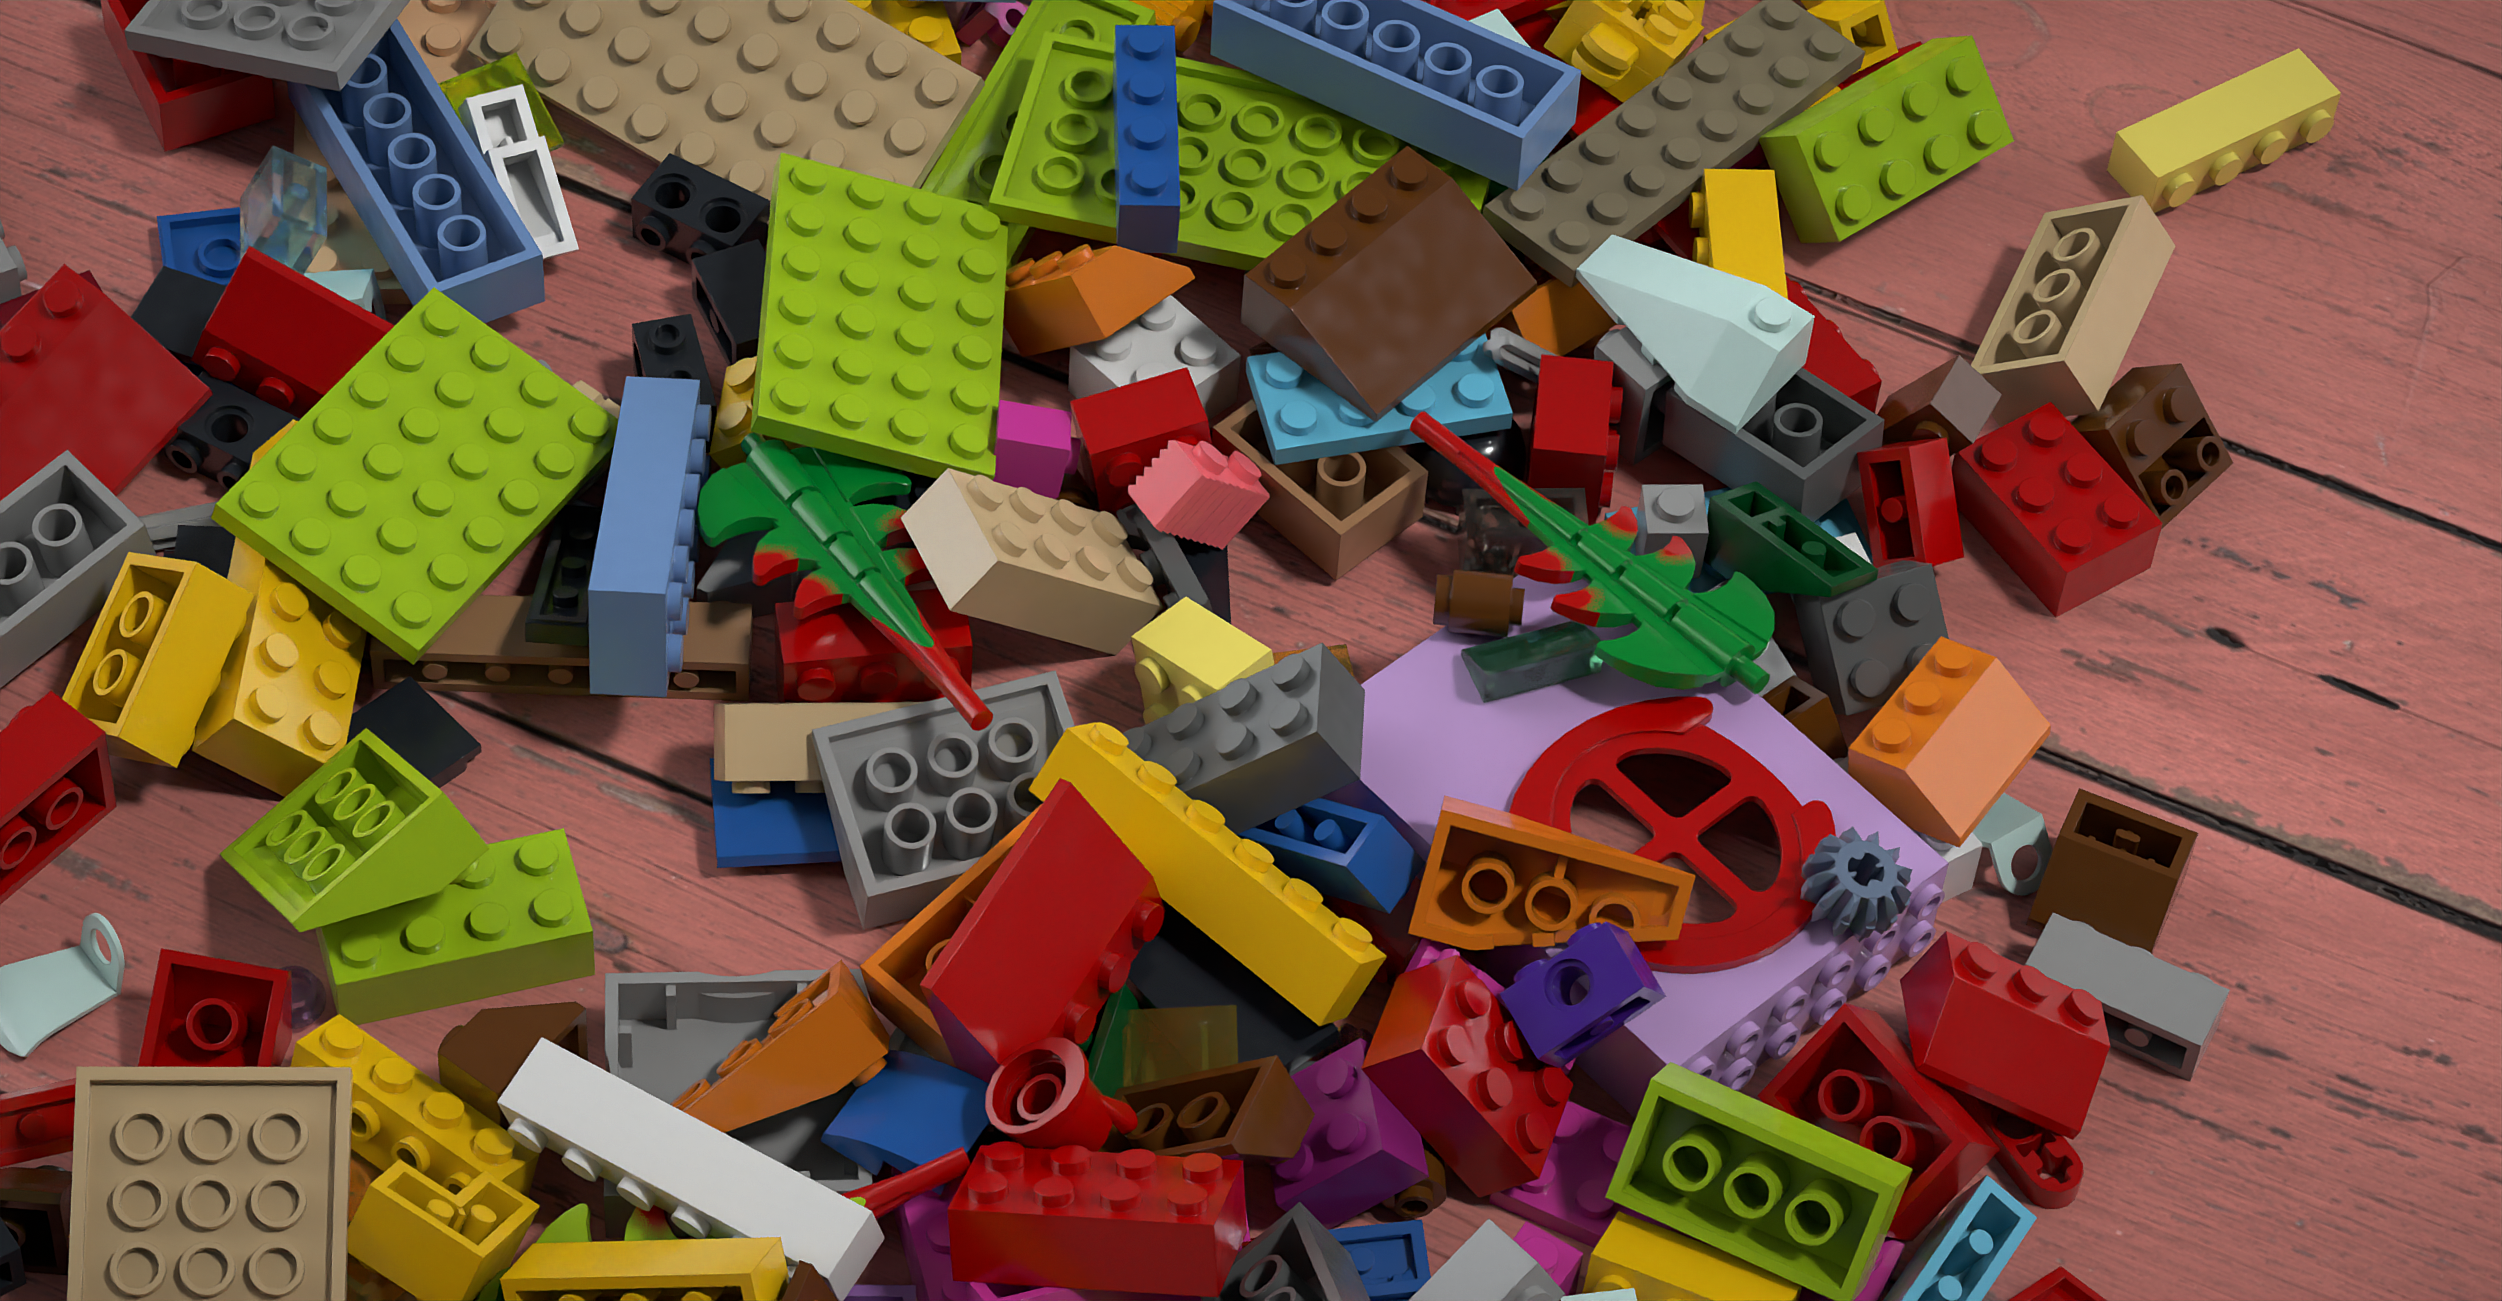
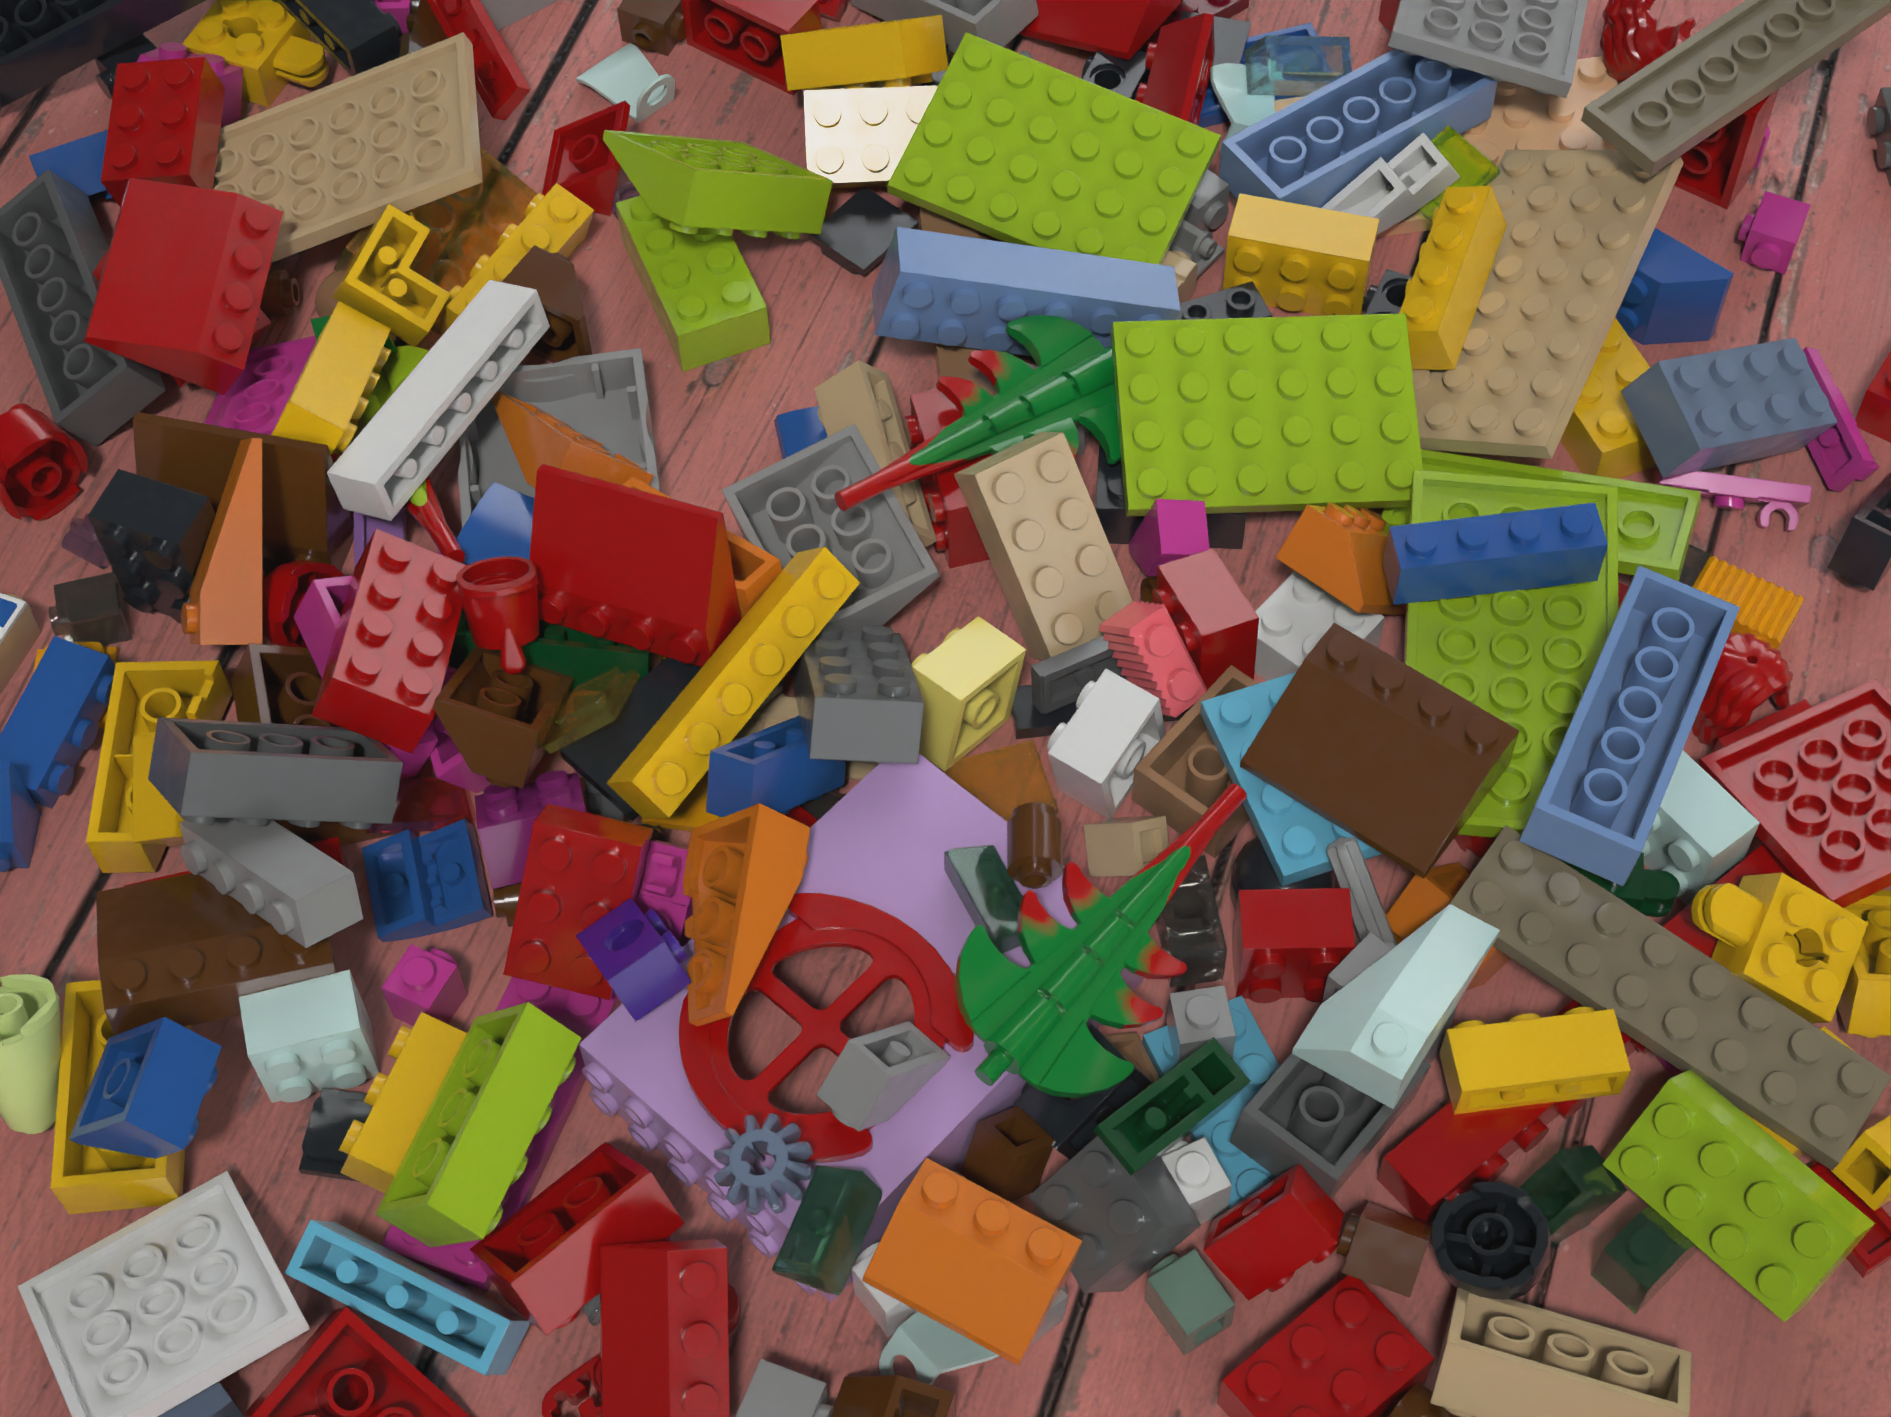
camera: 90 degrees right, 5 degrees up
(597, 276) = (1301, 255): none -> yellow brick
(684, 119) = (1451, 275): none -> yellow brick
(1297, 561) = (1104, 742): none -> white brick
(1402, 585) = (1124, 844): none -> tan panel
(1762, 764) = (880, 1074): none -> light grey slope
(1870, 294) = (1572, 1190): none -> clear green slope
(1924, 328) = (1492, 1241): none -> black cylinder
(1931, 239) = (1642, 1259): none -> clear green slope
(1938, 857) = (828, 1229): none -> clear green slope
(1973, 603) = (1188, 1300): none -> sand green brick

